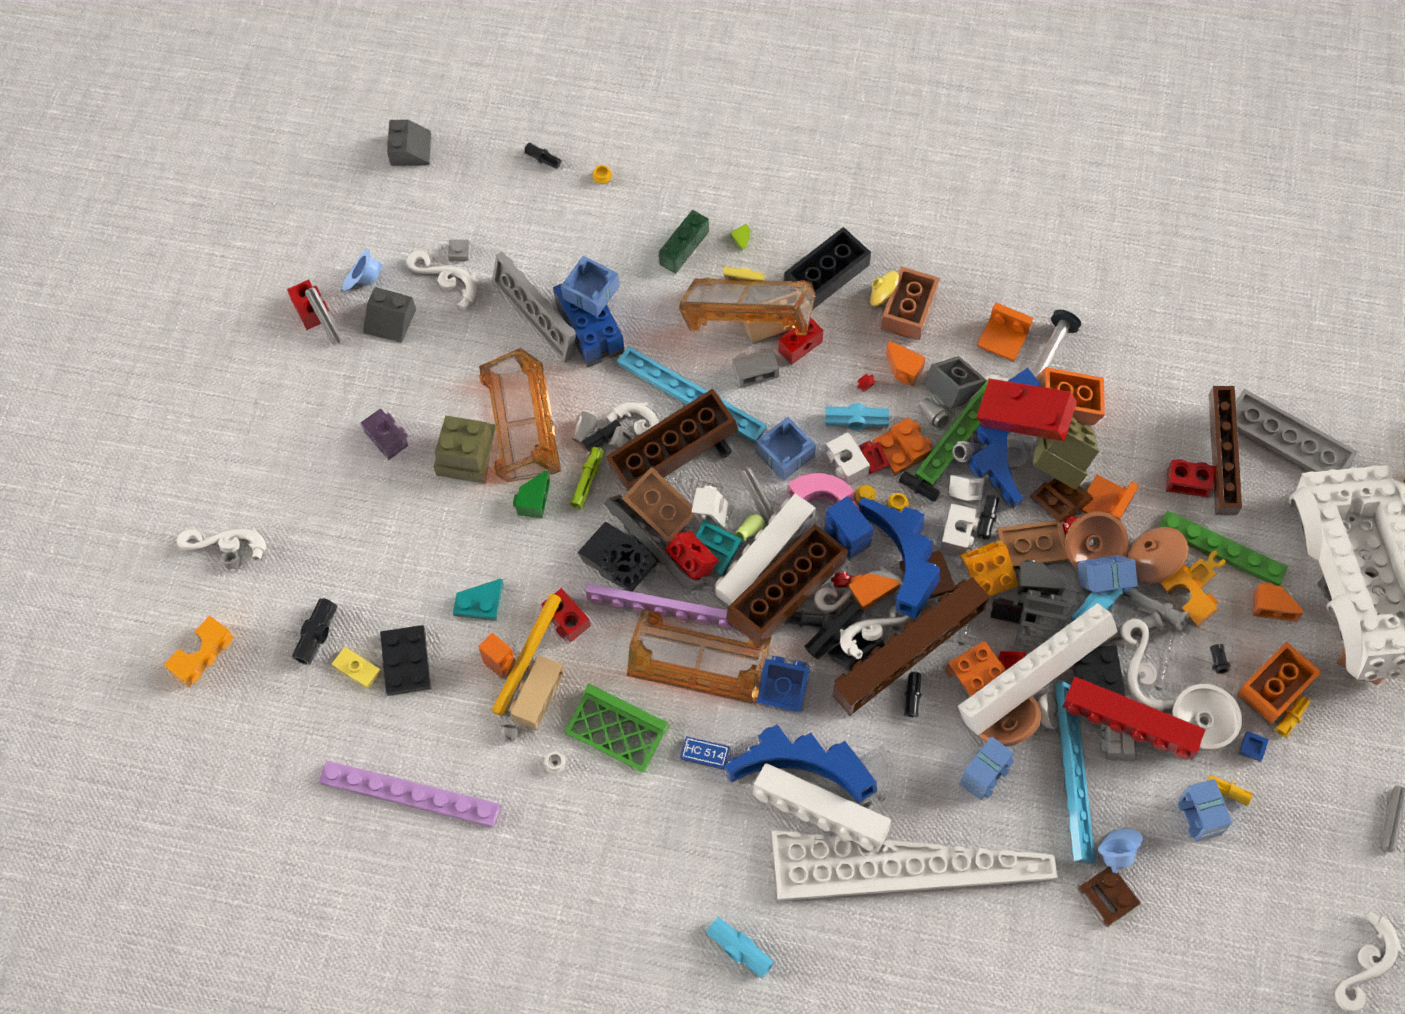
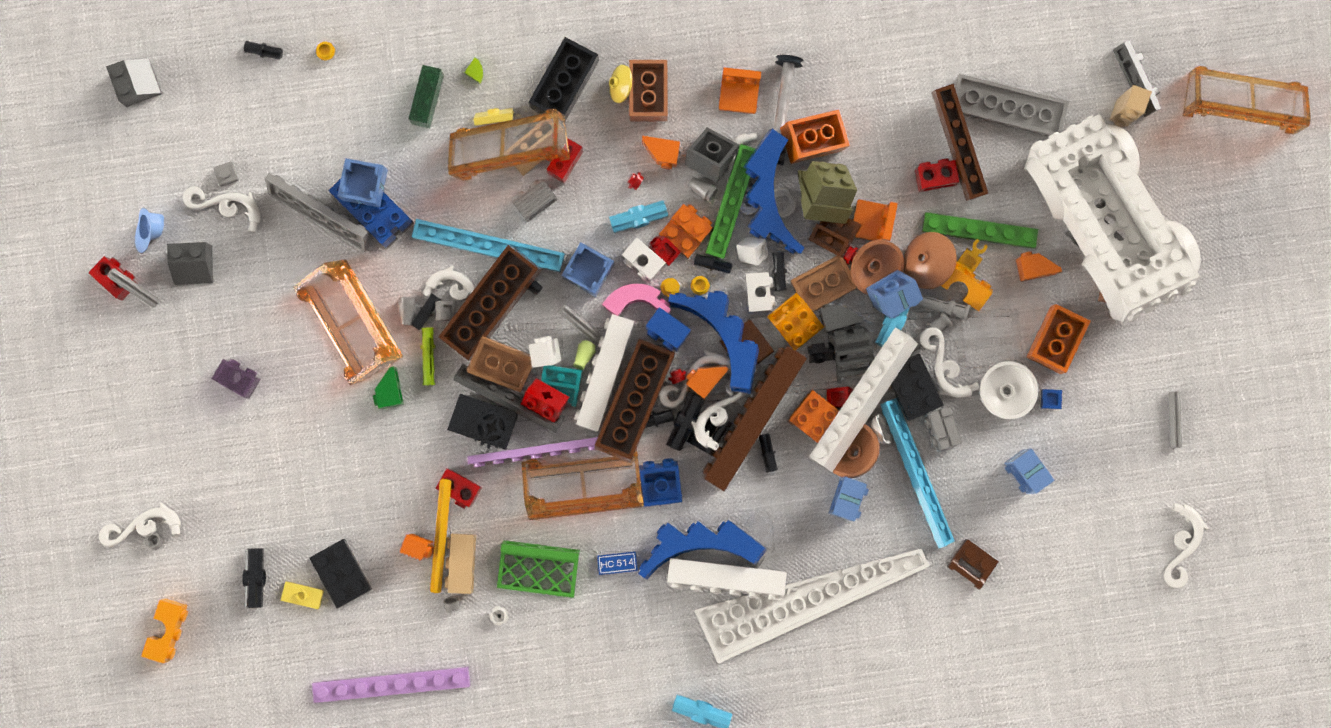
camera: 25 degrees left, 20 degrees up
(464, 449) = (312, 368): olive piece -> none
(479, 601) = (381, 500): teal wing -> none
(965, 450) = (742, 220): light grey cone -> none
(1026, 409) = (786, 176): red brick -> none
(1120, 848) = (971, 523): light blue piece -> none
(1133, 718) = (952, 417): red brick -> none
(1219, 659) = (1005, 334): black pin -> none
(1232, 791) = (1042, 443): yellow axle -> none
(1292, 717) = (1076, 363): yellow axle -> none

